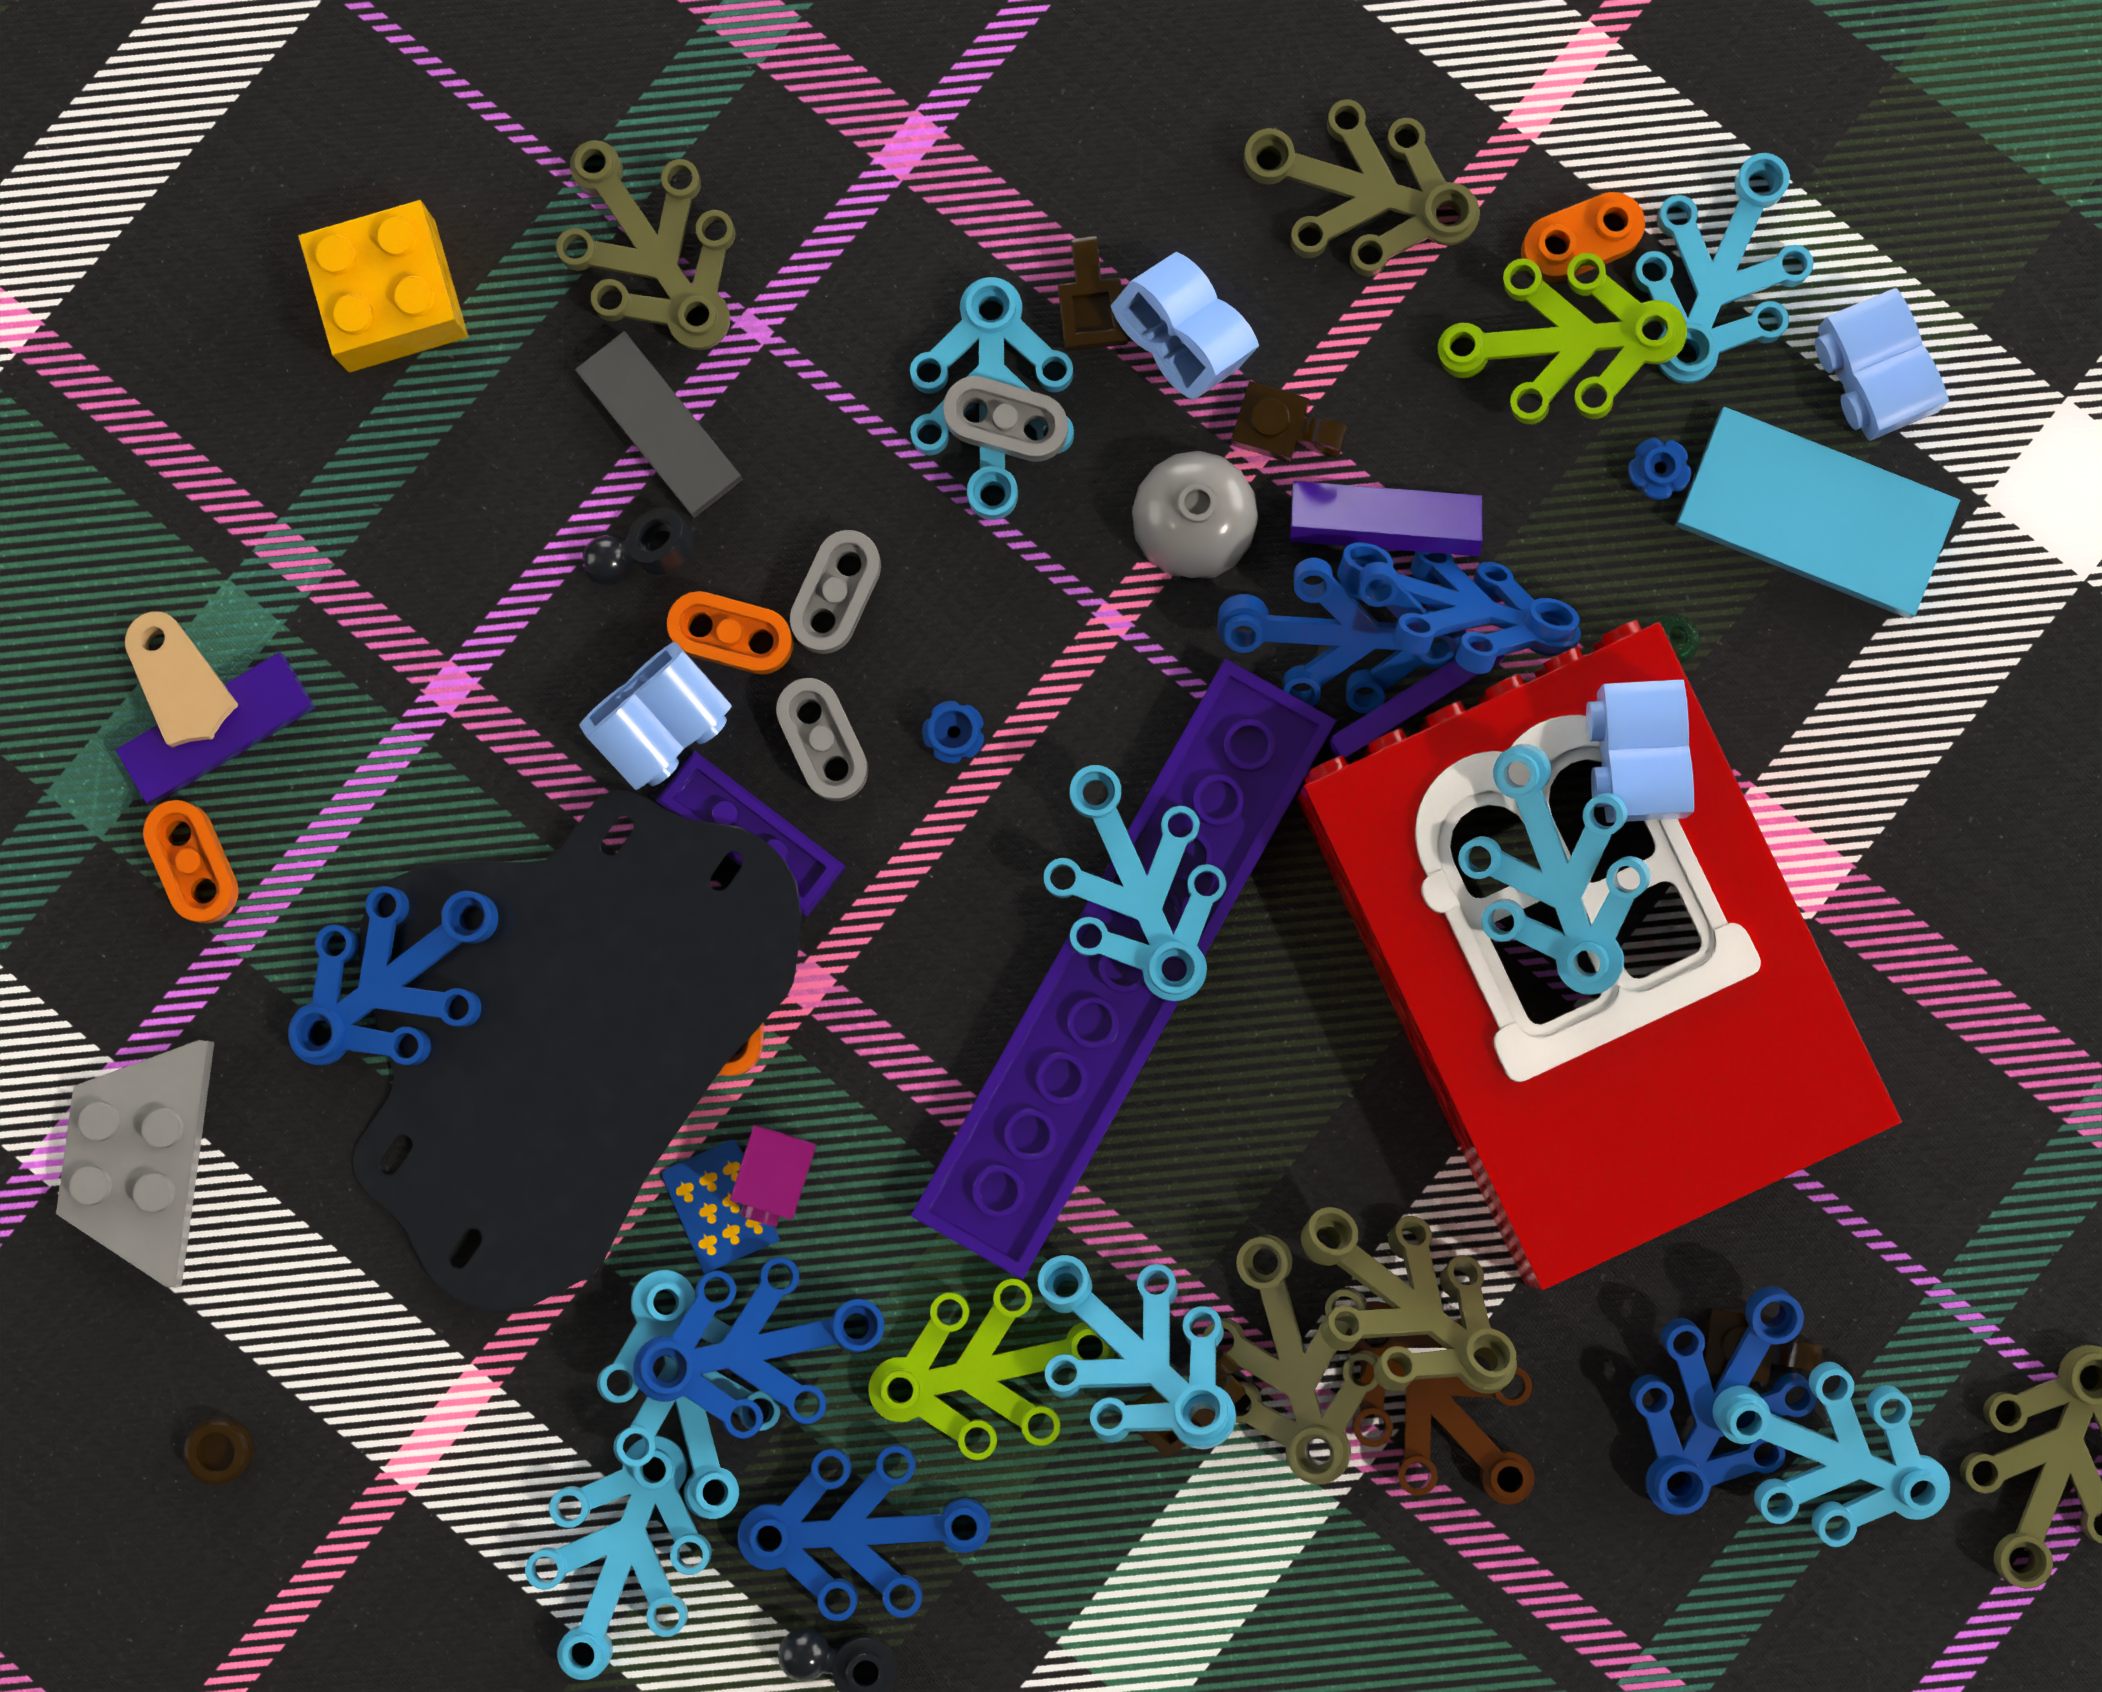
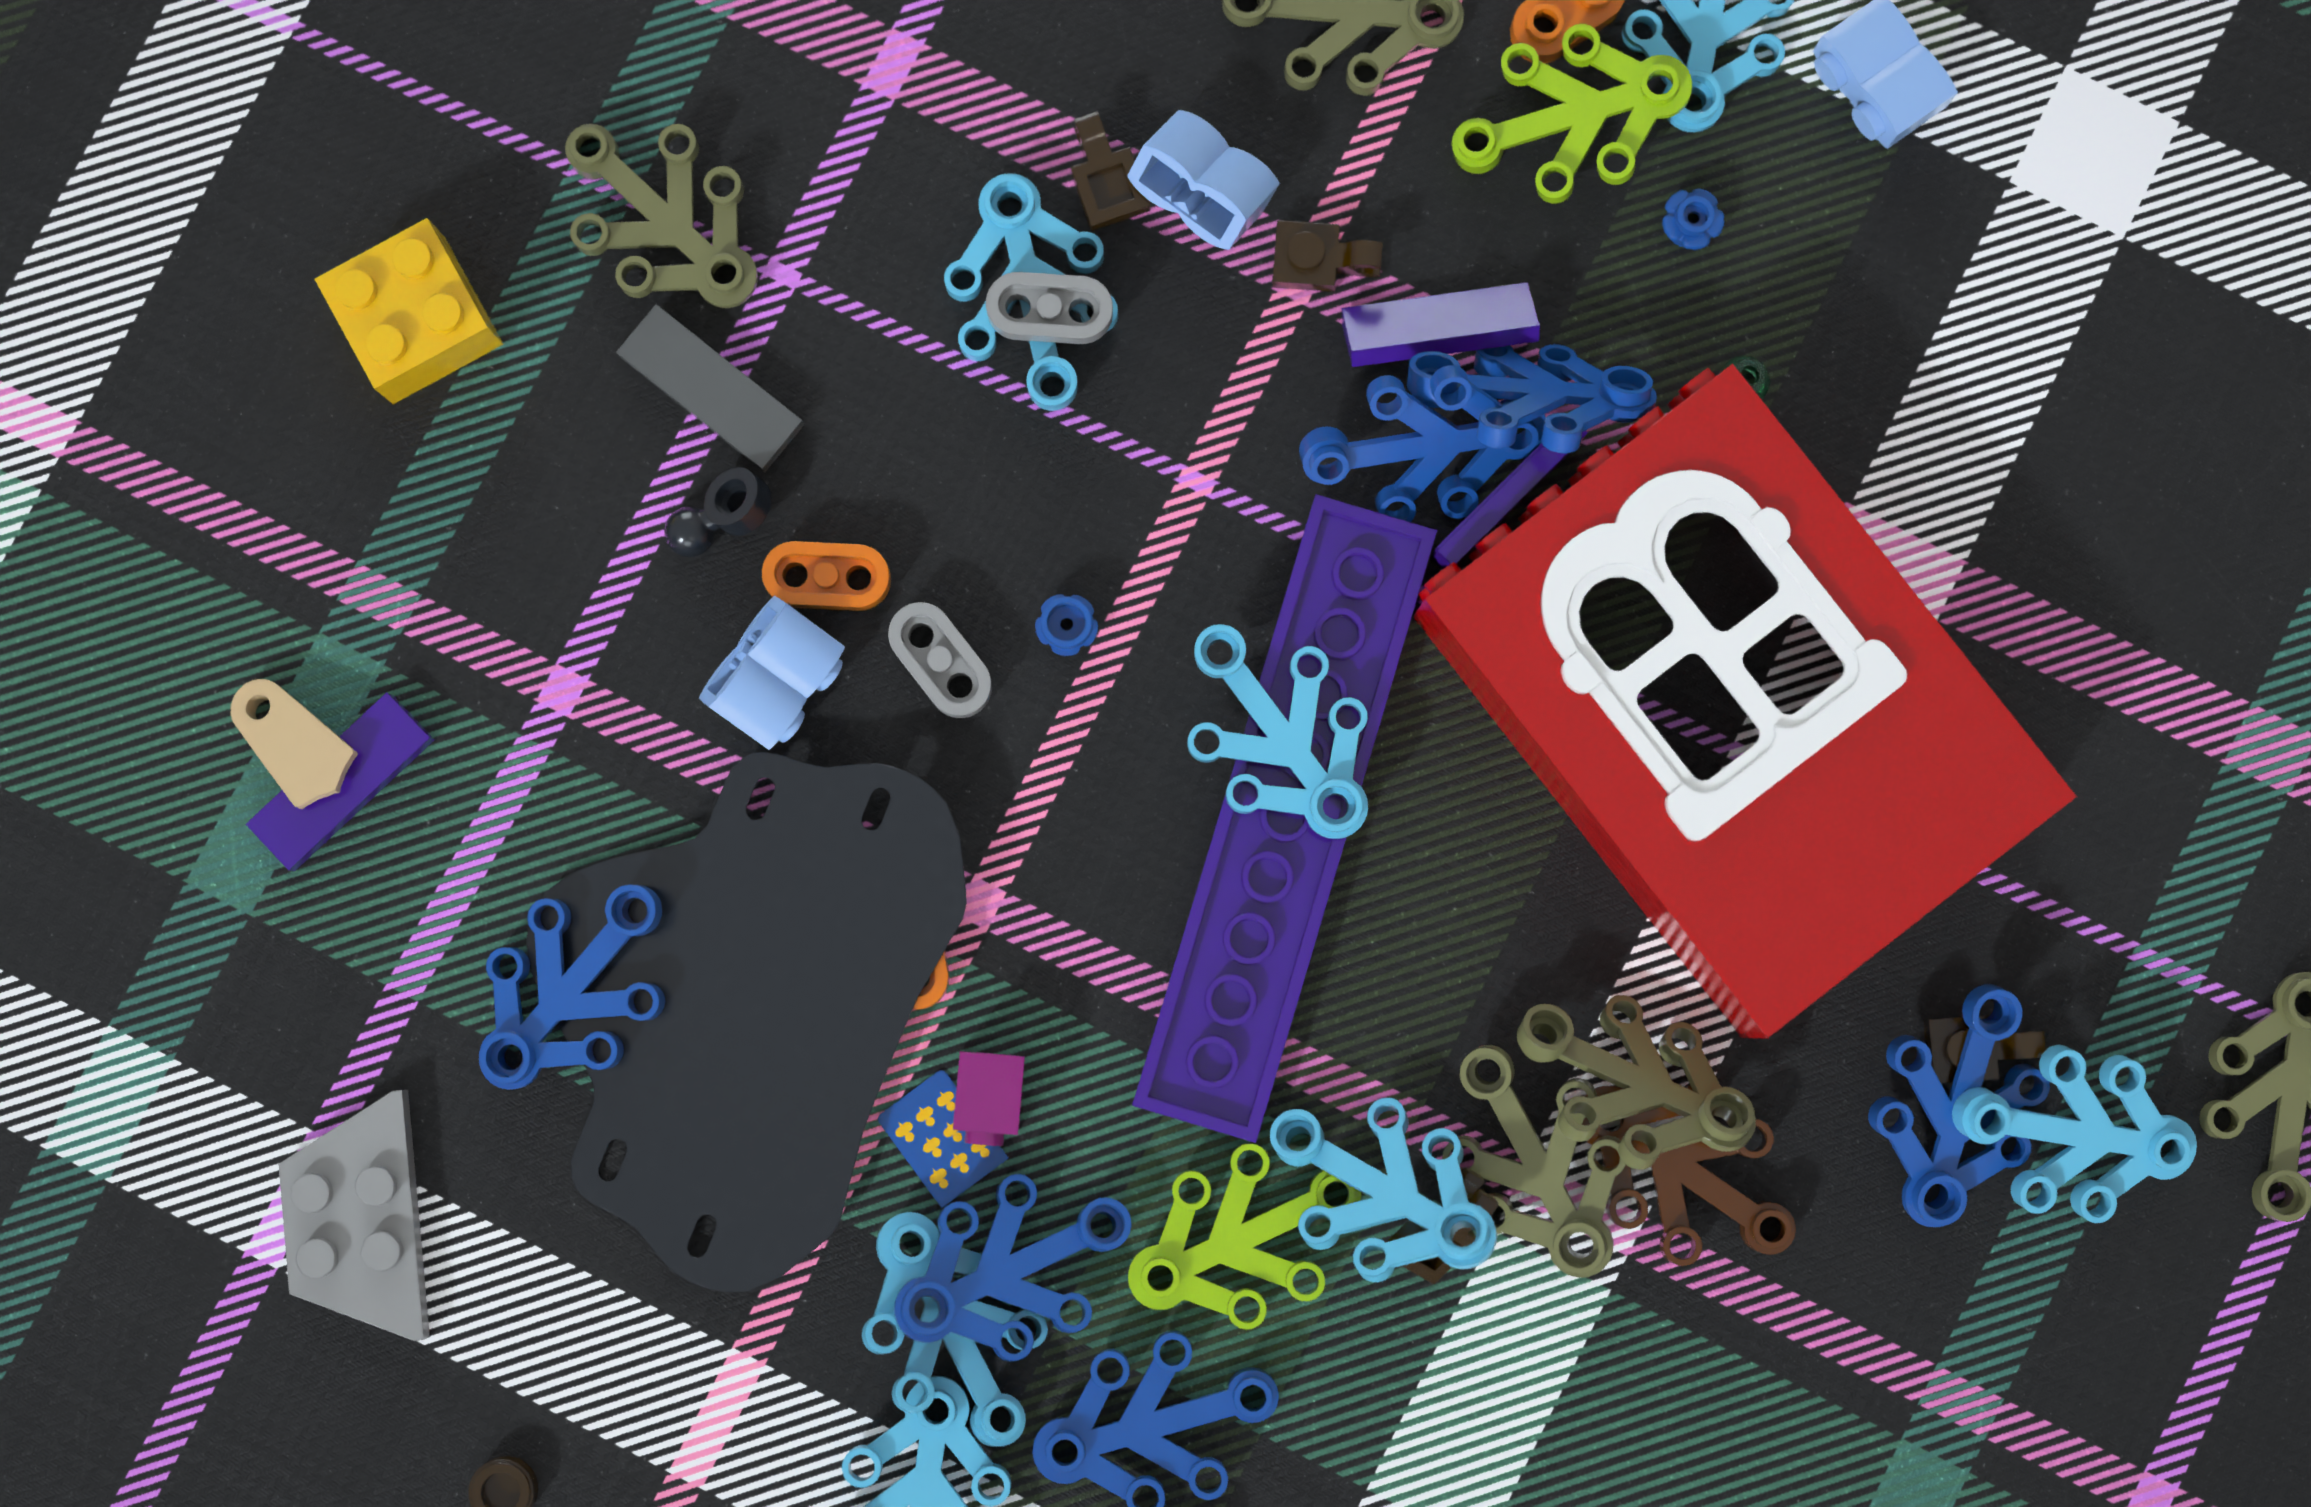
camera: 20 degrees left, 0 degrees up
(191, 864) = (346, 920): orange plate -> none
(709, 795) = (842, 739): dark purple tile -> none
(835, 593) = (920, 514): light grey plate -> none
(1194, 515) = (1253, 362): light grey cylinder -> none
(1559, 881) = (1696, 636): medium azure plant -> none
(1643, 749) = (1747, 491): light blue brick -> none
(1817, 513) = (1853, 228): medium azure tile -> none

